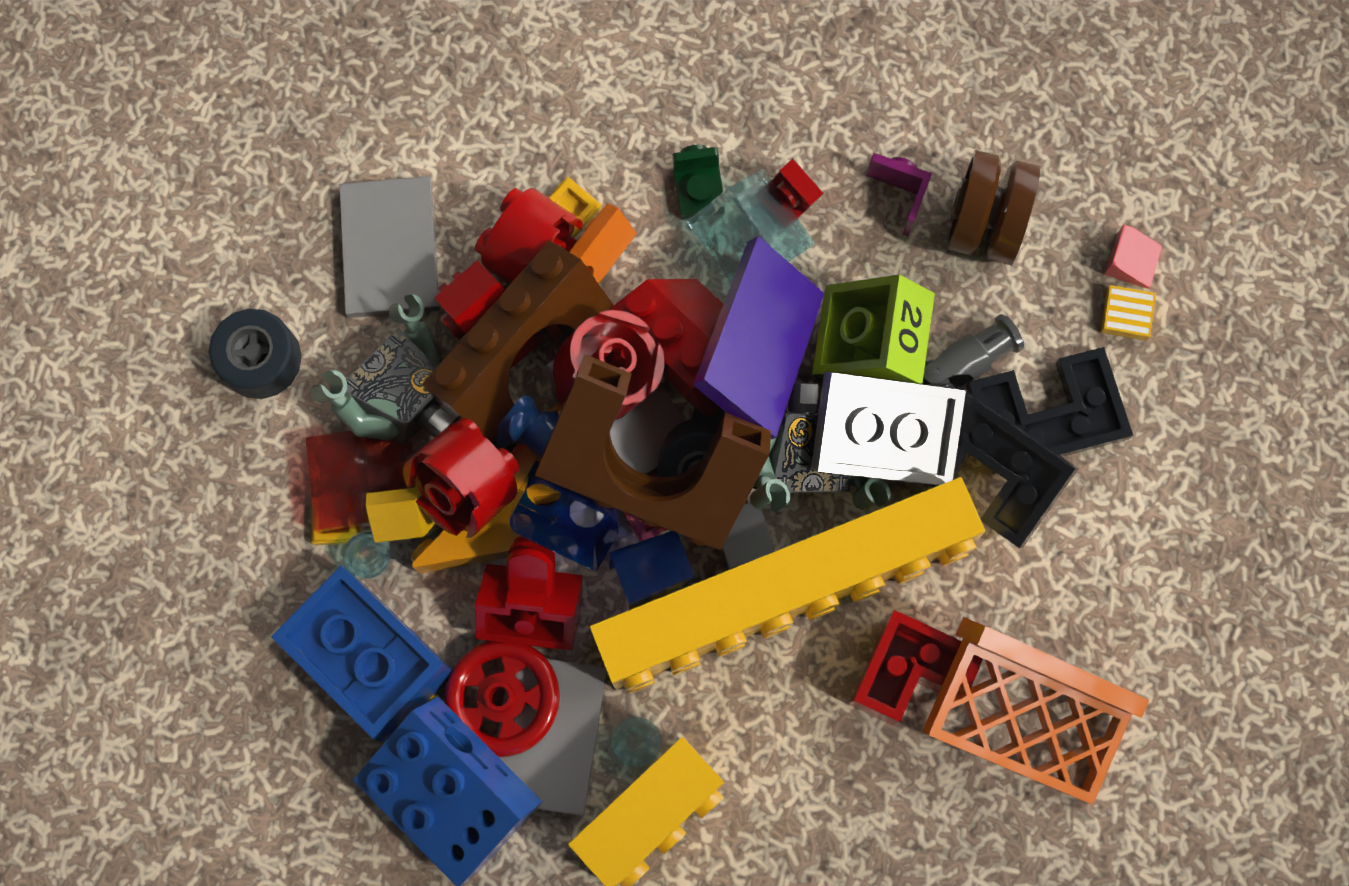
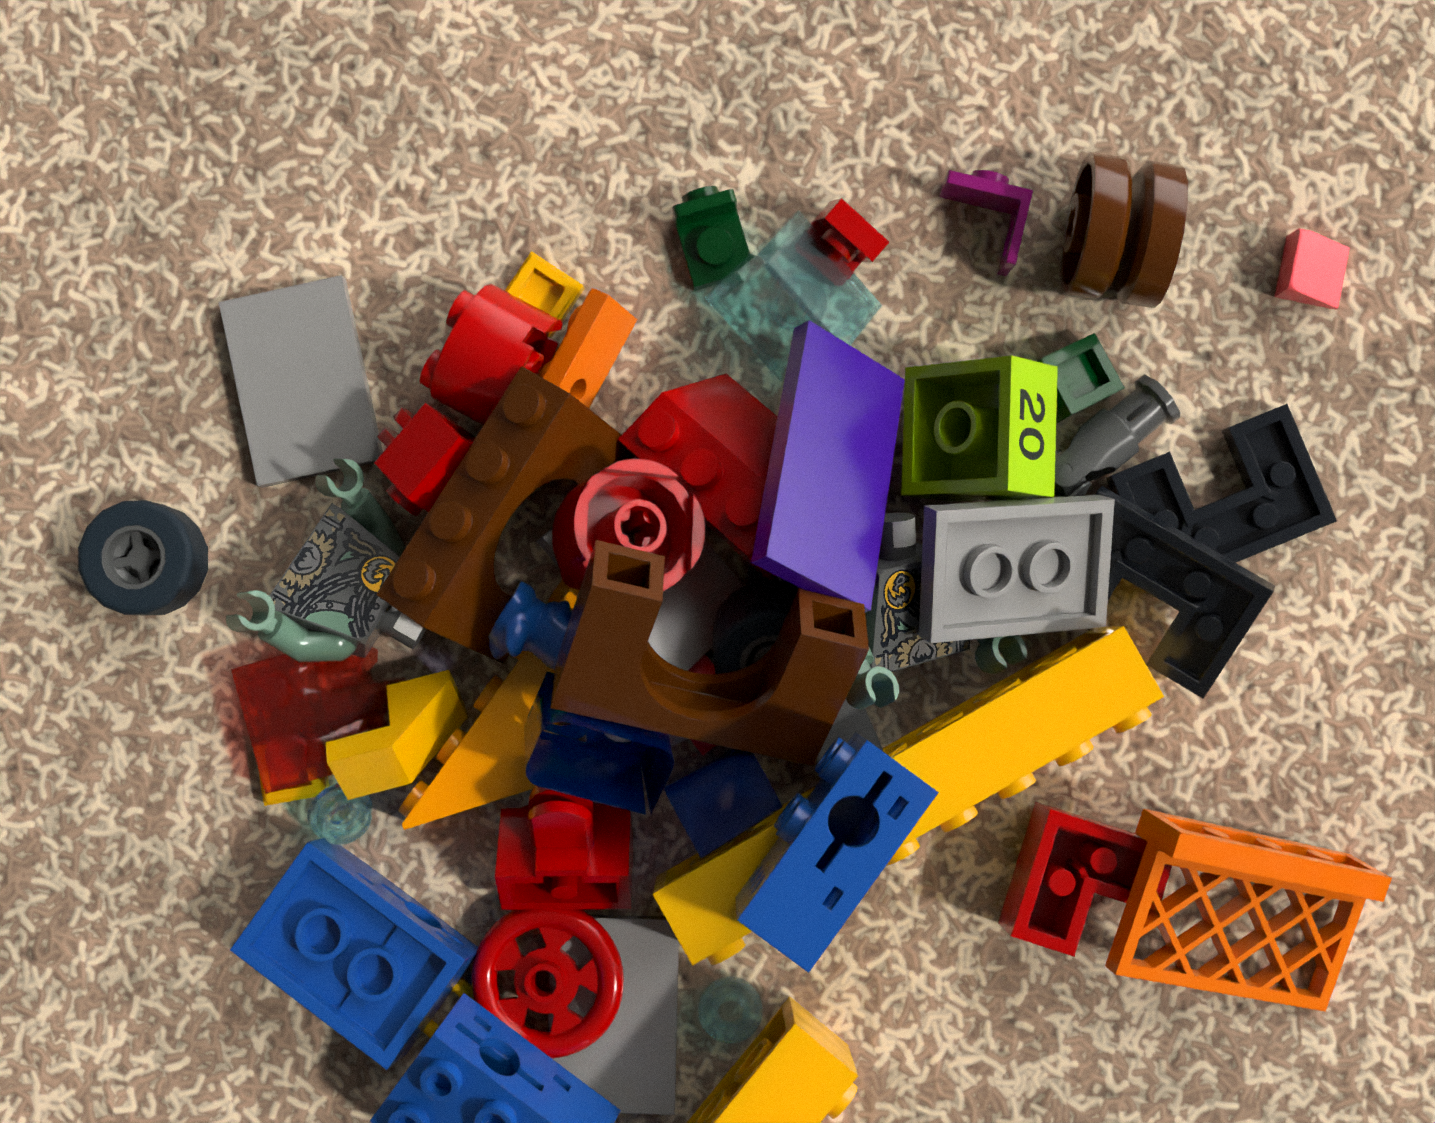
camera: 10 degrees left, 10 degrees up
(462, 478) = (452, 715): red brick -> none
(725, 591) = (831, 848): none -> blue piece
(954, 311) = (1083, 376): none -> dark green bracket
(1128, 312) = (1312, 348): yellow tile -> none

